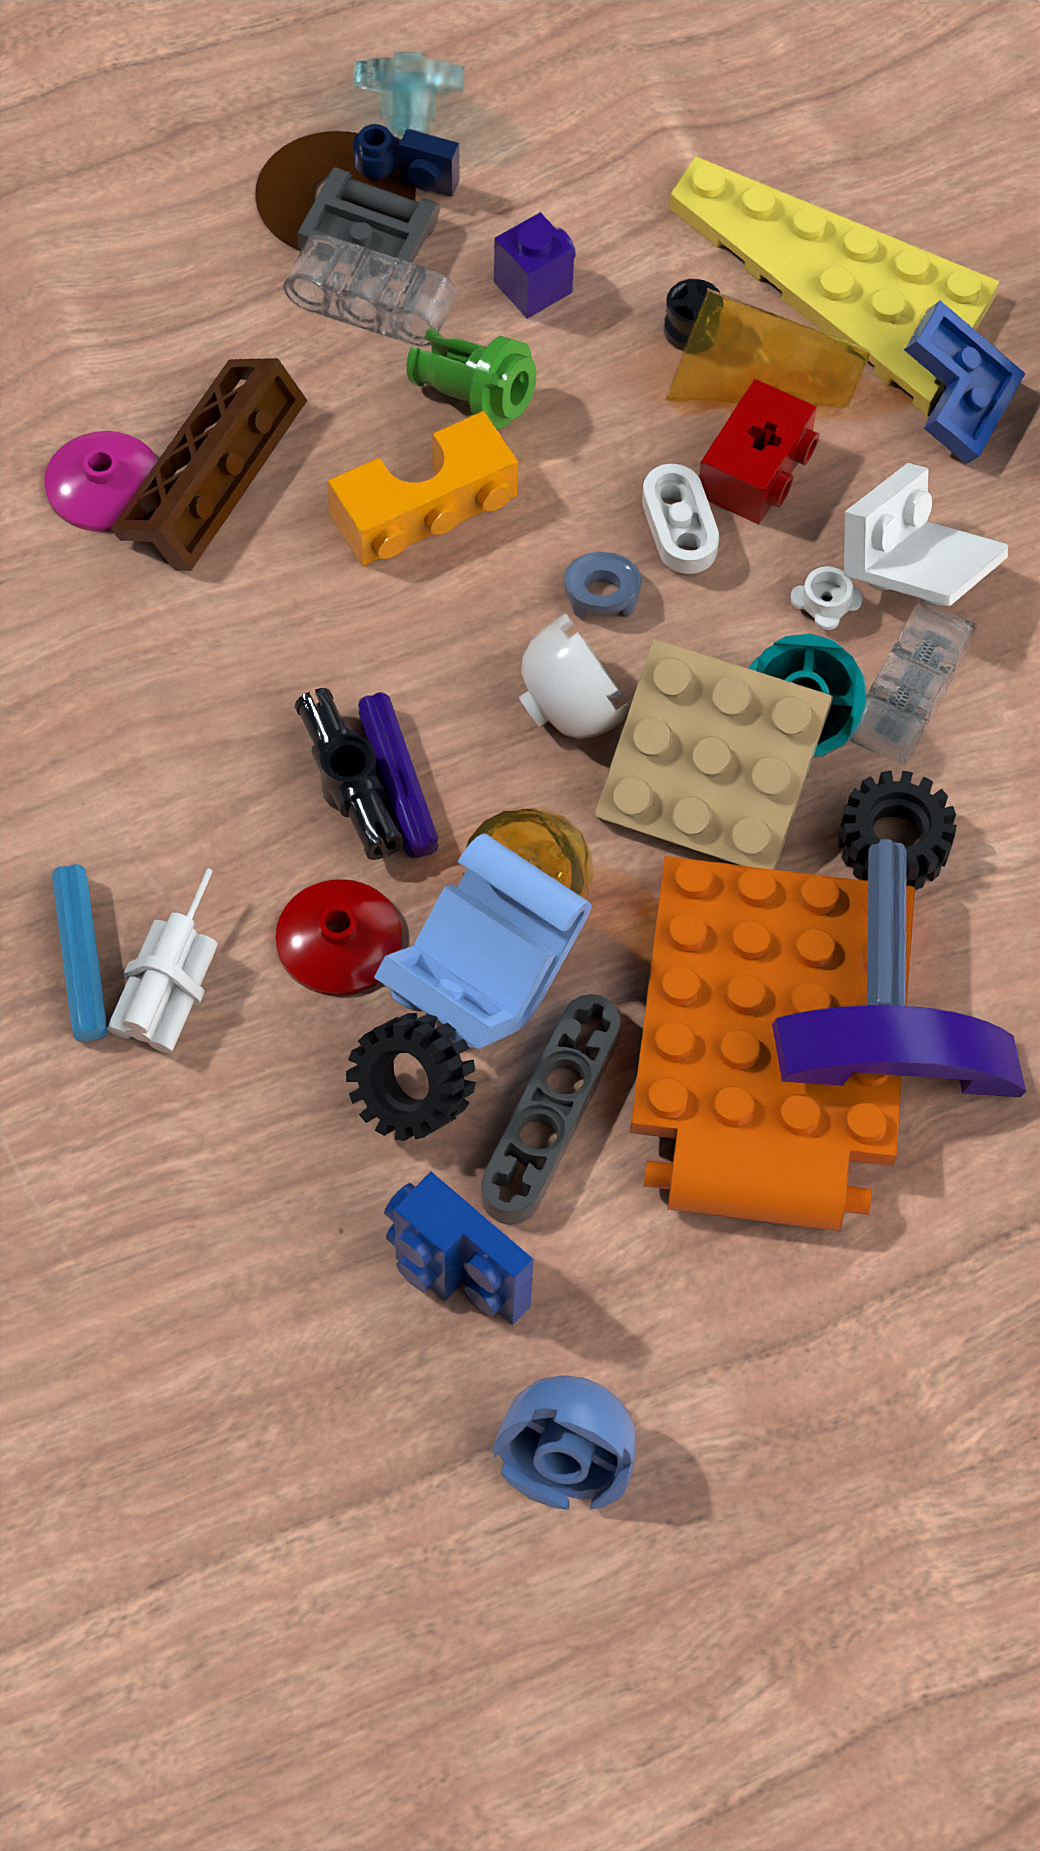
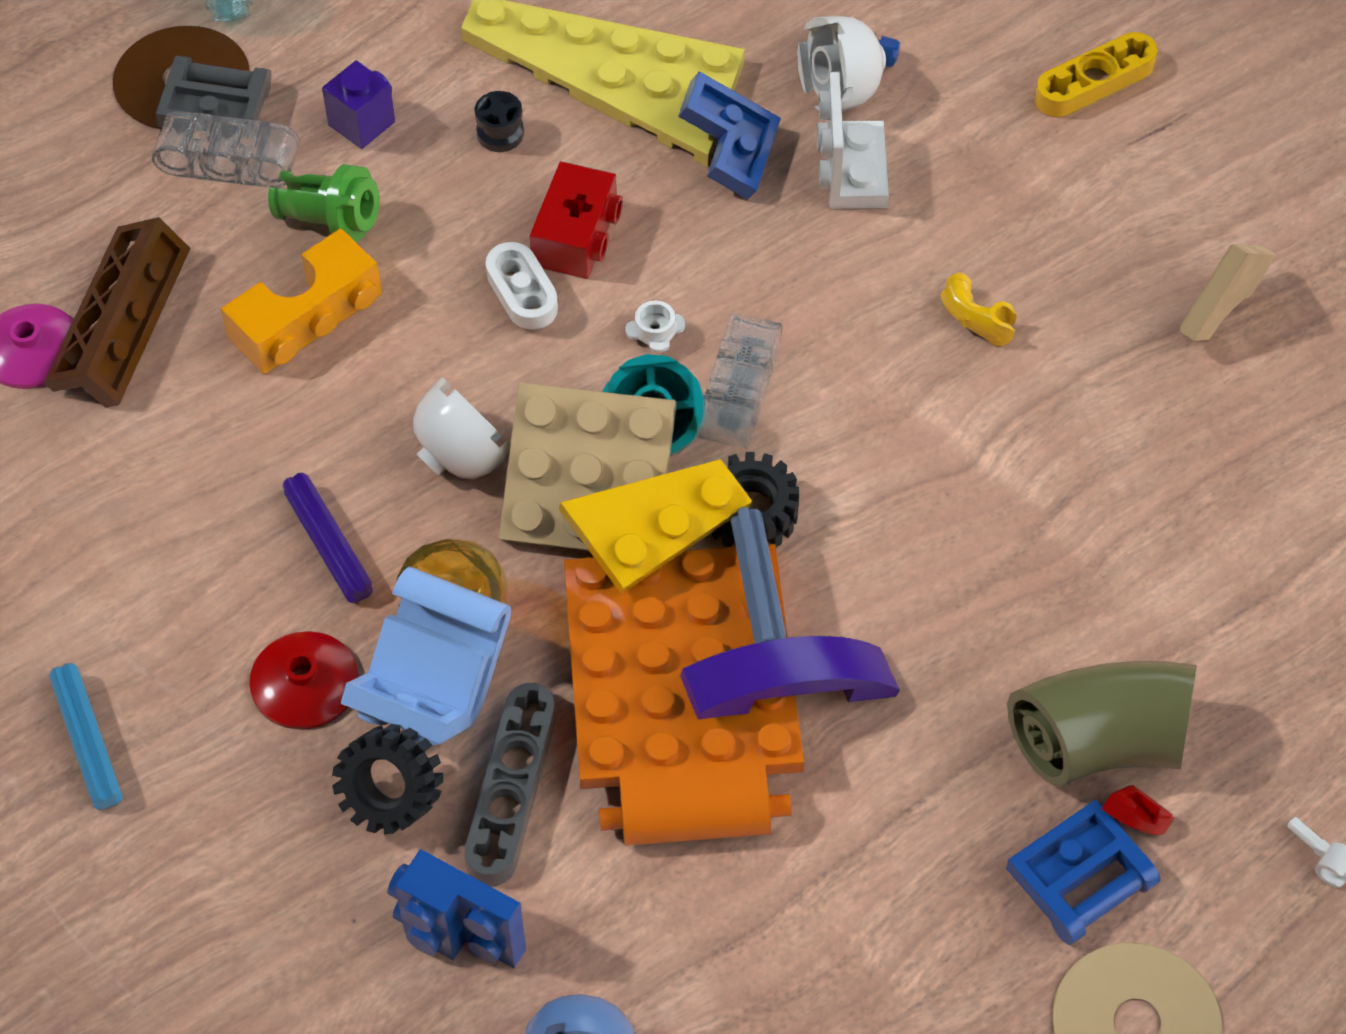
camera: 10 degrees left, 5 degrees down
(164, 980) = (163, 744): white piece -> none
(354, 796) = (294, 561): black pin -> none
(422, 158) = (248, 36): dark blue plate -> none
(602, 567) = (467, 337): sand blue piece -> none
(743, 342) = (543, 134): clear yellow wing -> none
(779, 832) = (654, 519): none -> yellow wing
(901, 551) = (705, 276): white bracket -> none

